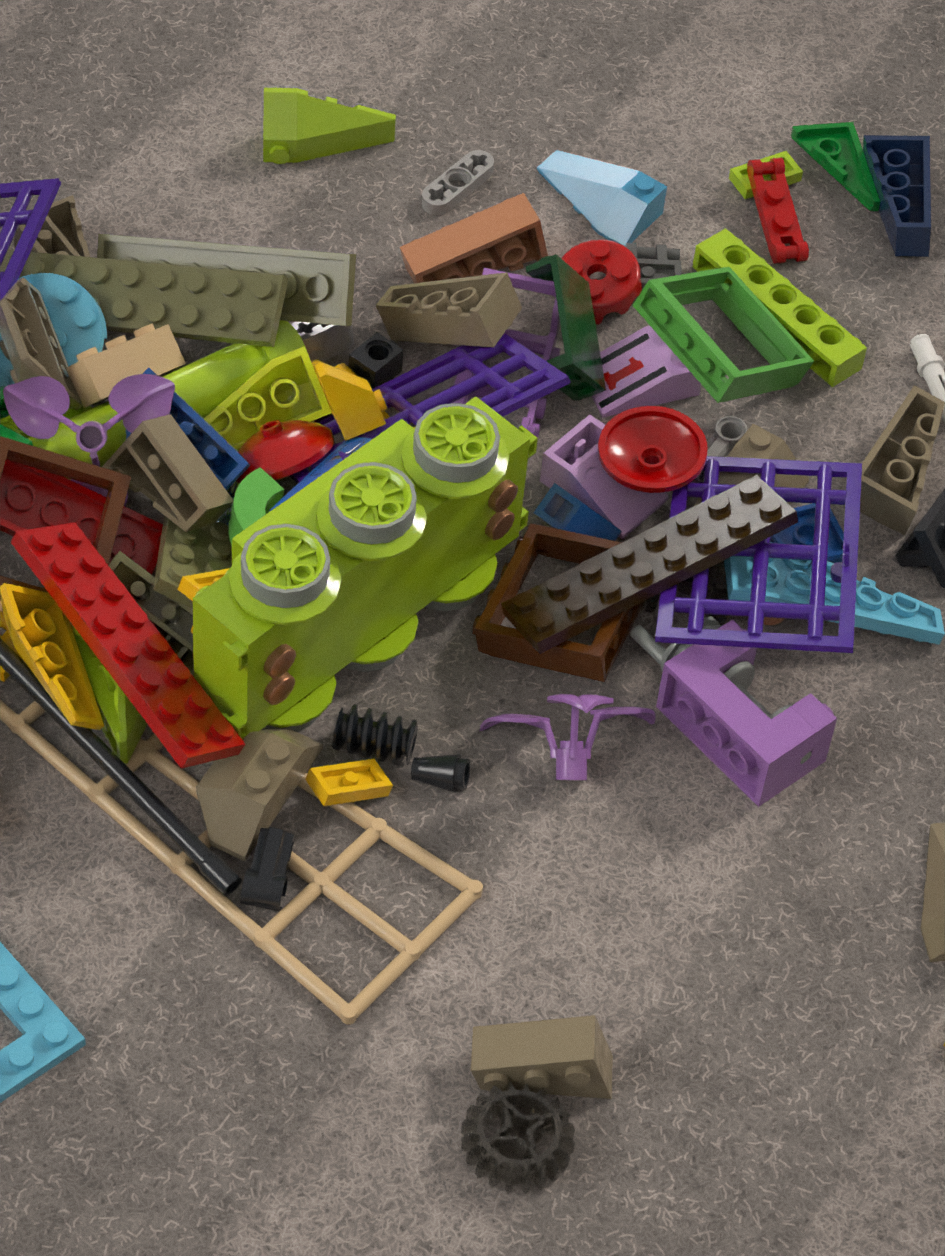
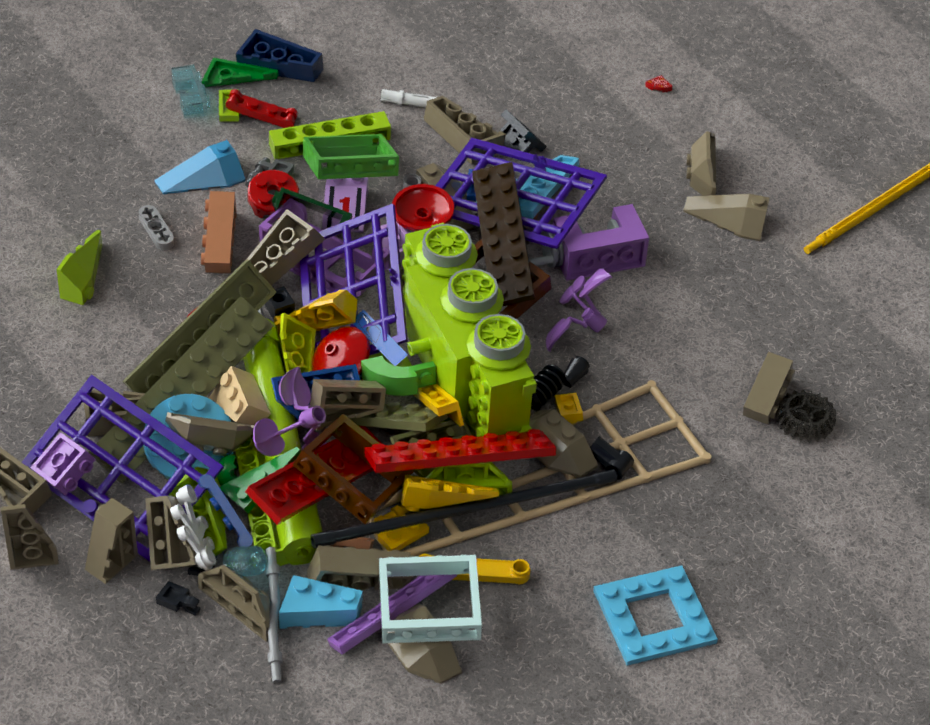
camera: 65 degrees left, 5 degrees down
(745, 134) = (190, 90): none -> clear light blue arch

